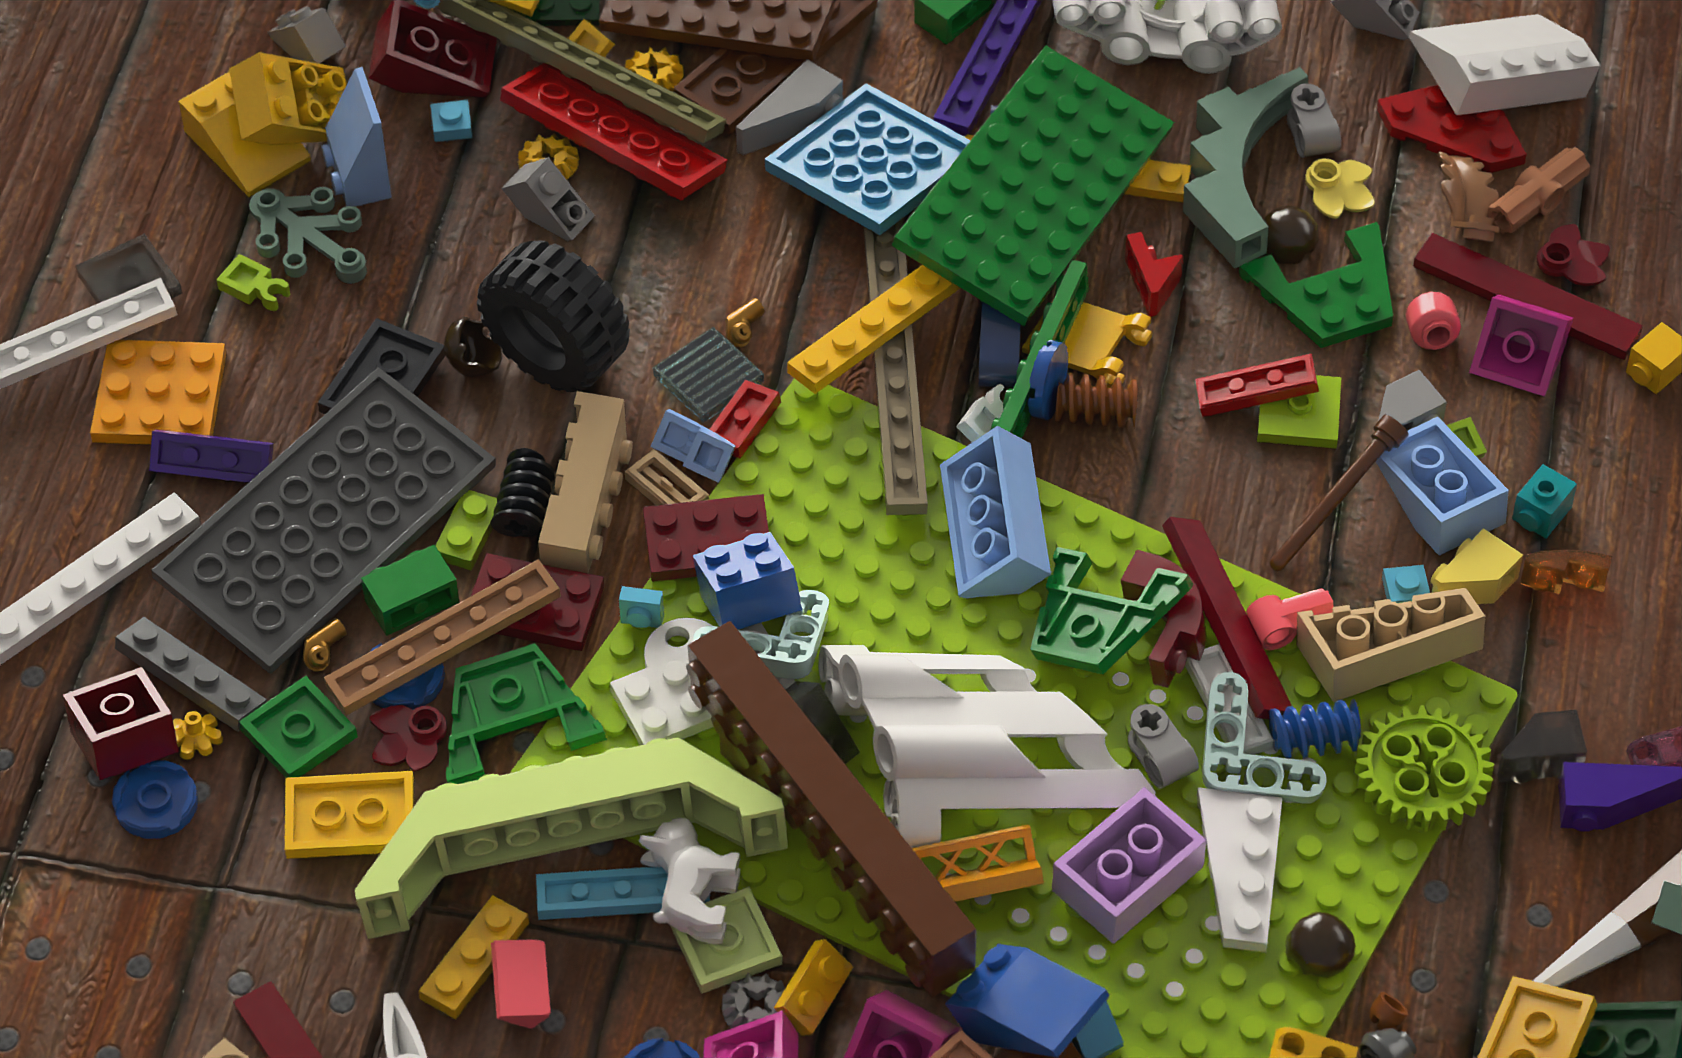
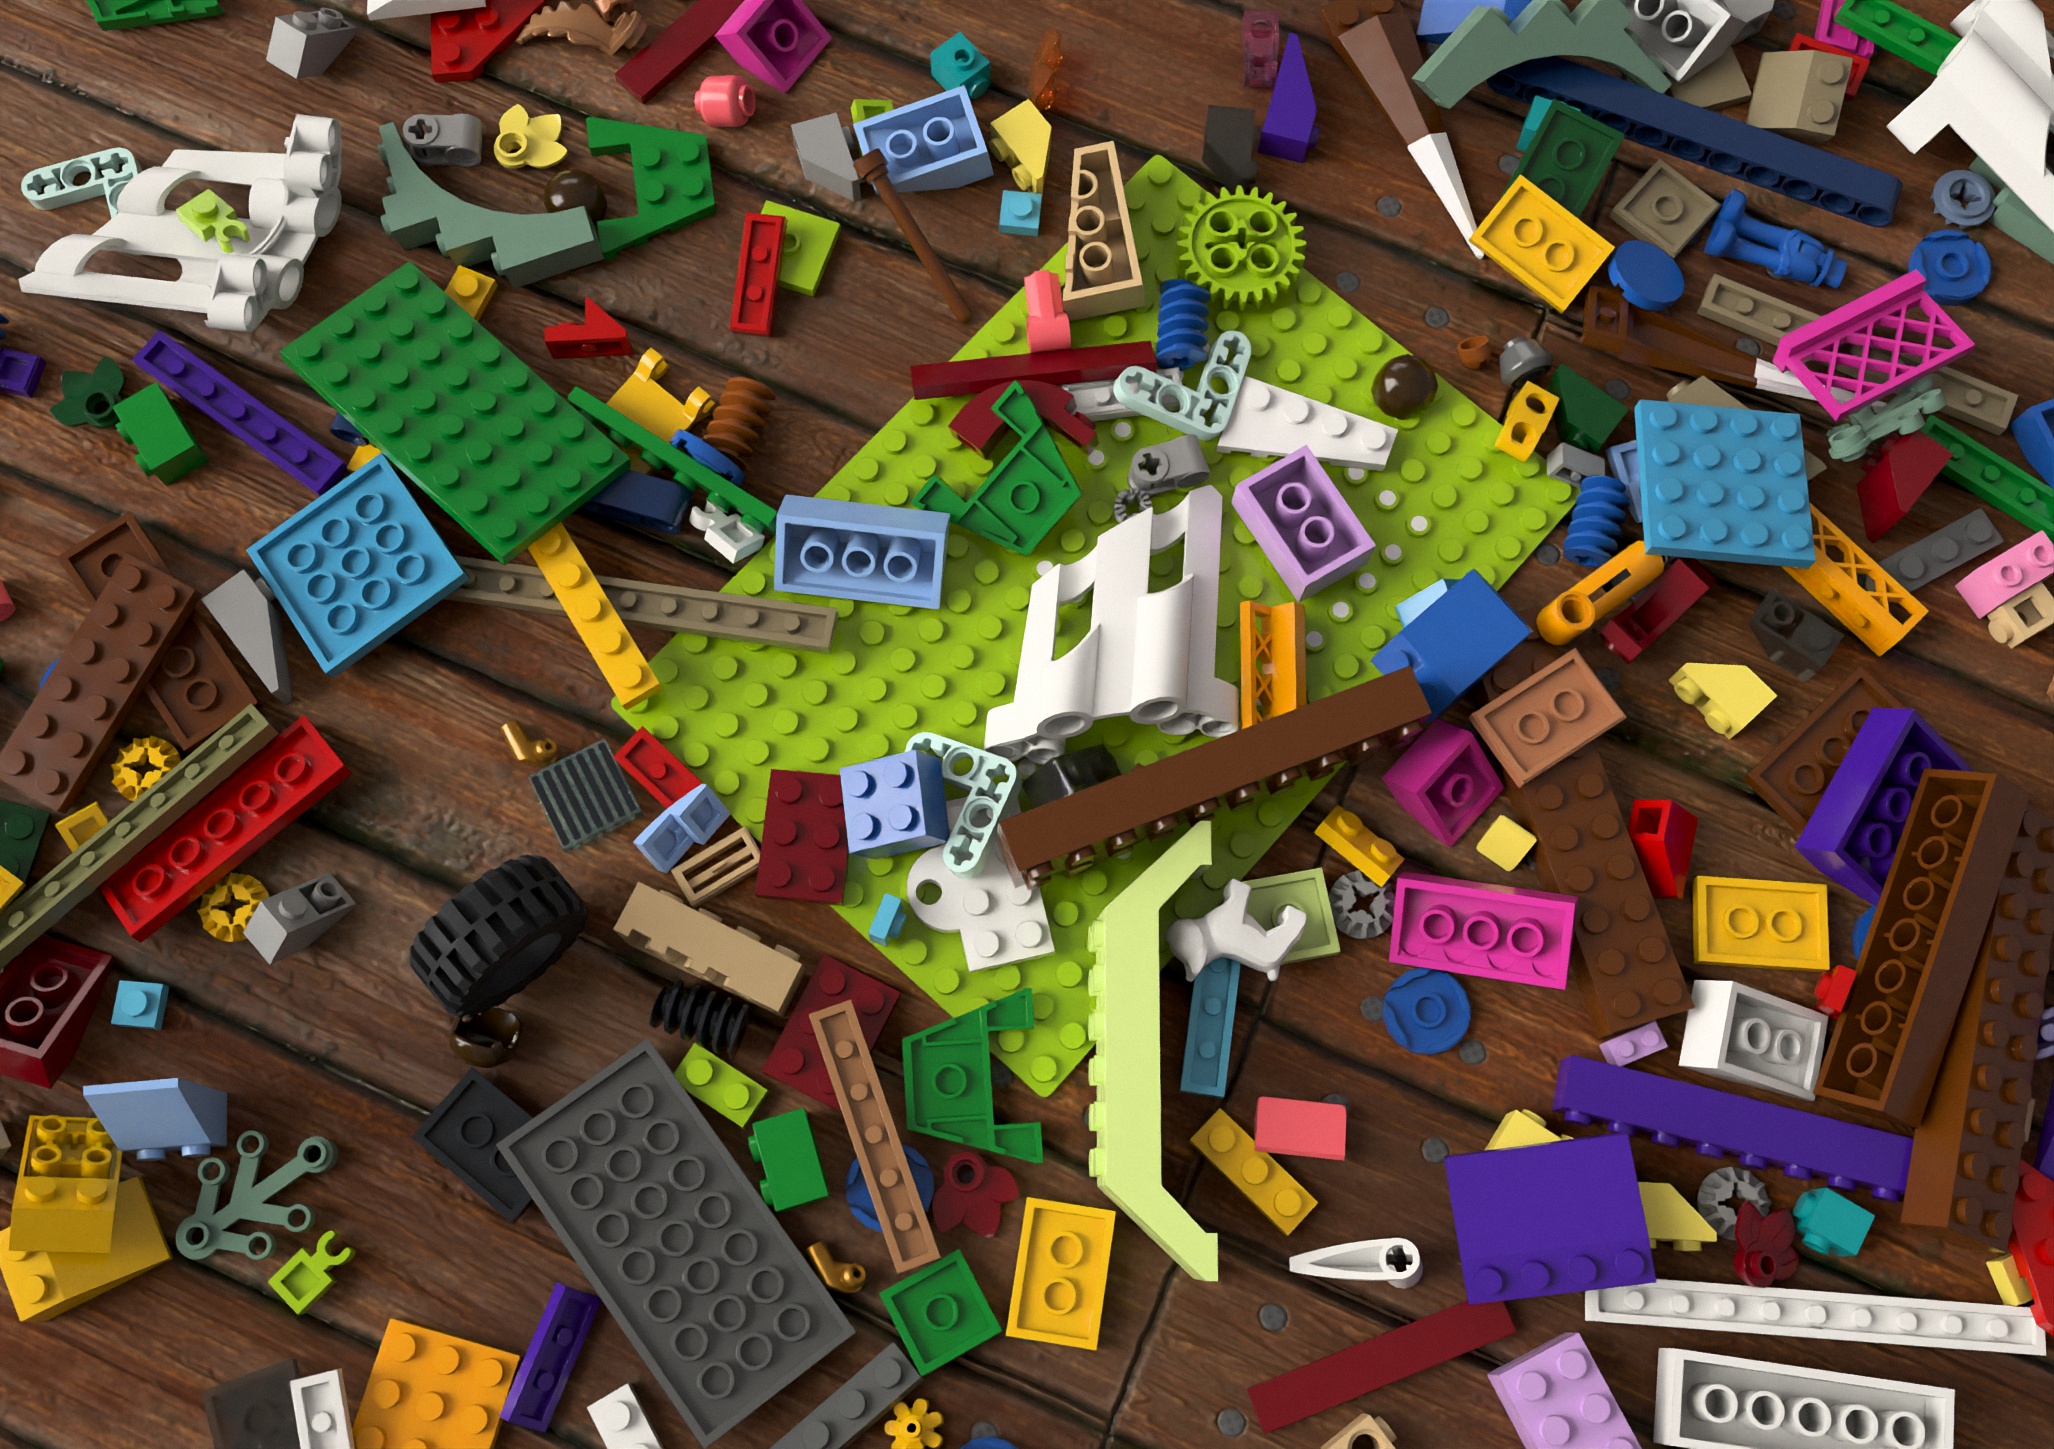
camera: 80 degrees left, 20 degrees up
(1119, 738) = (1128, 497): none -> light grey bush

